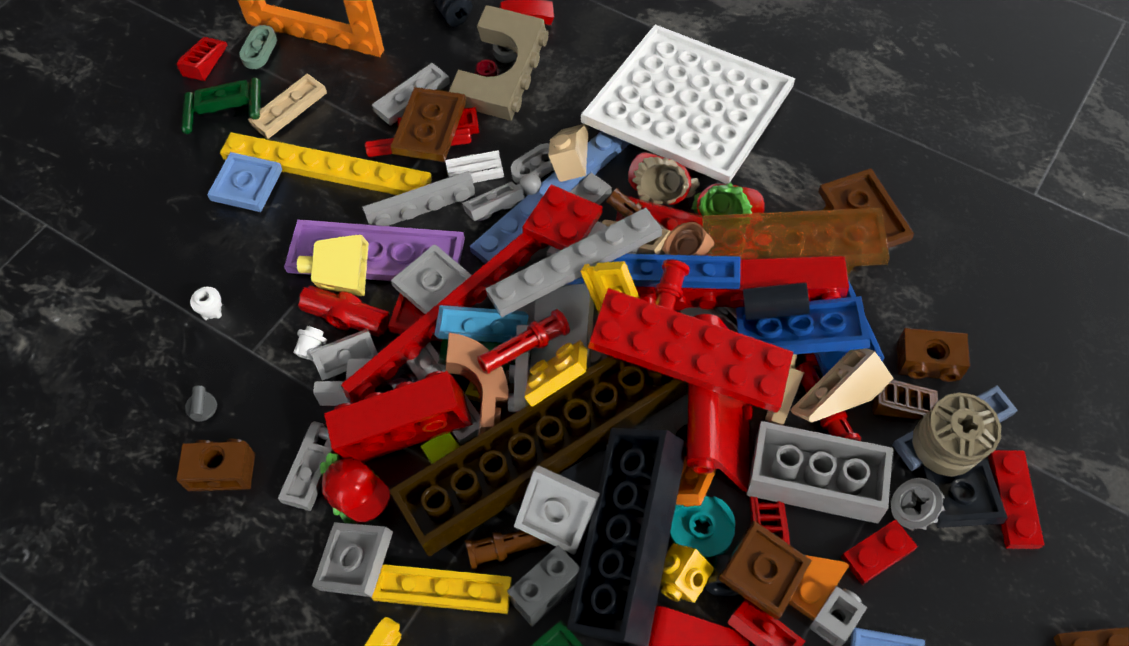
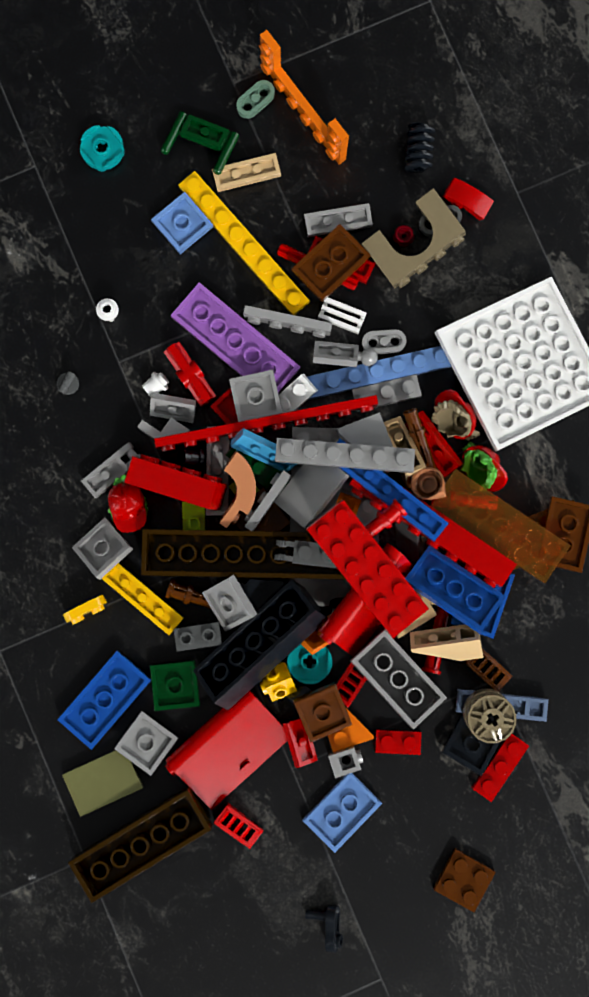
camera: 30 degrees right, 25 degrees up
(117, 178) = (102, 160): none -> teal plate
(199, 68) = (201, 77): red slope -> none
(233, 473) = (44, 428): reddish brown brick -> none
(338, 264) = (202, 343): light yellow torso -> none
(478, 251) = (296, 394): none -> white plate
(535, 336) = (249, 488): red pin -> none
(556, 373) = (283, 522): yellow plate -> none
(561, 218) = (362, 413): red plate -> none
(569, 152) = (410, 351): tan slope -> none
(608, 275) = (355, 490): yellow plate -> none
(608, 386) = (304, 553): none -> dark grey hinge
(776, 301) = (449, 565): black brick -> none
(905, 498) = (437, 724): light grey gear -> none
(948, 347) = (540, 658): reddish brown brick -> none

